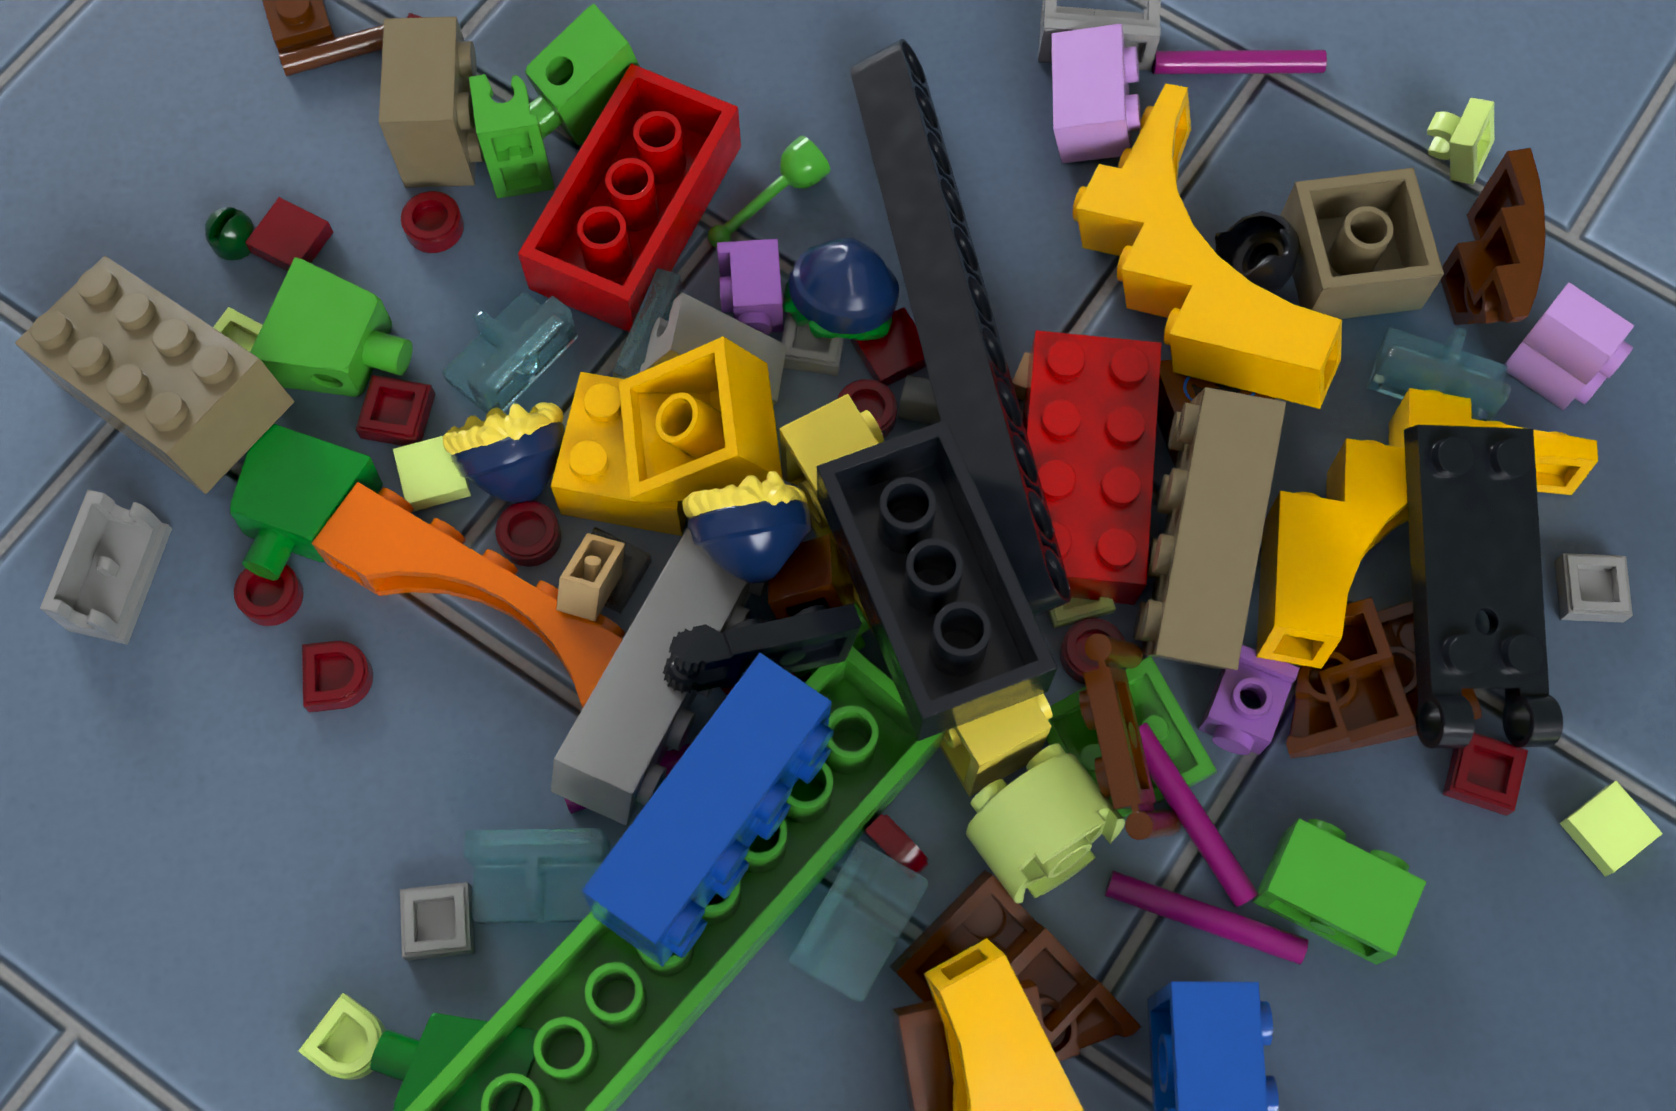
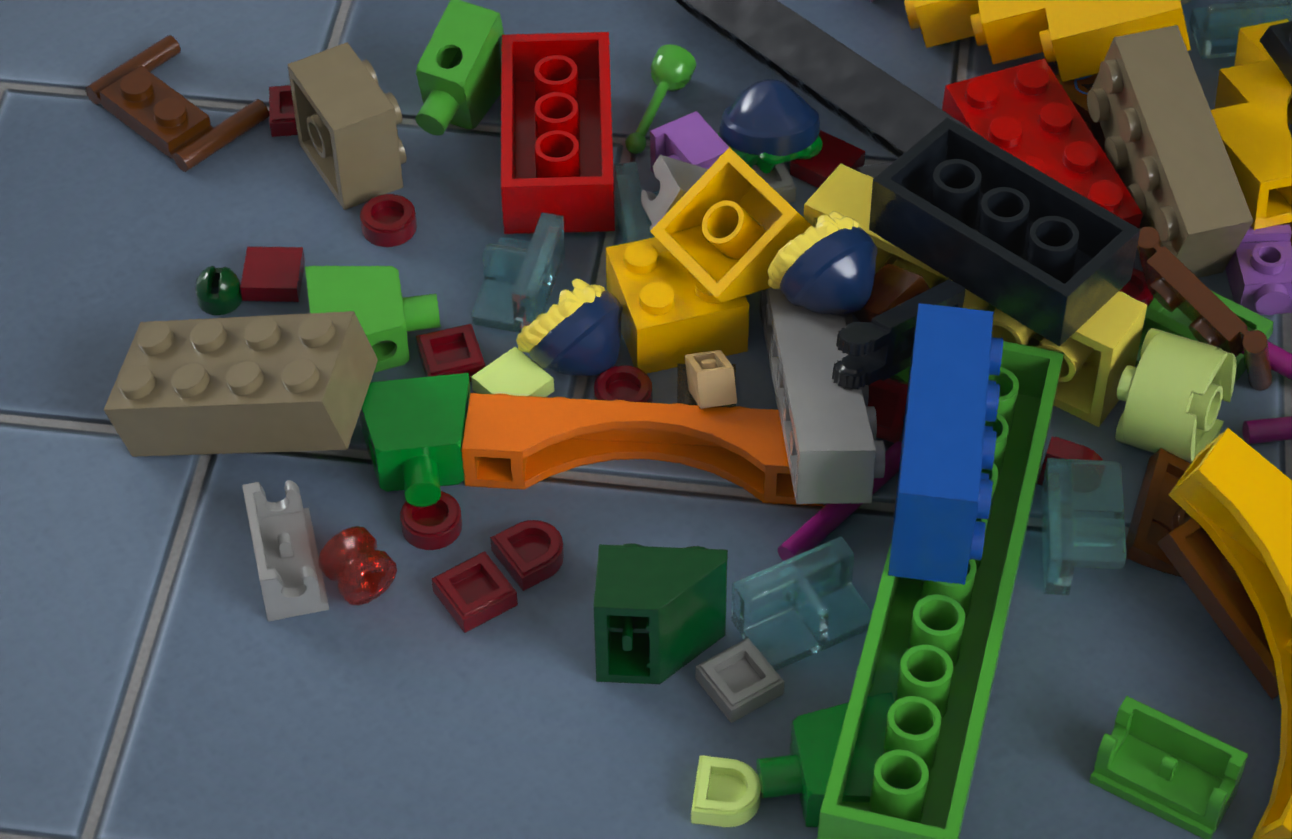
camera: 25 degrees left, 20 degrees down
(160, 619) = (357, 565): none -> clear red wheel
(258, 695) = (474, 591): none -> dark red tile
(366, 822) = (656, 609): none -> dark green slope
(510, 140) = (433, 124): bright green hinge -> none

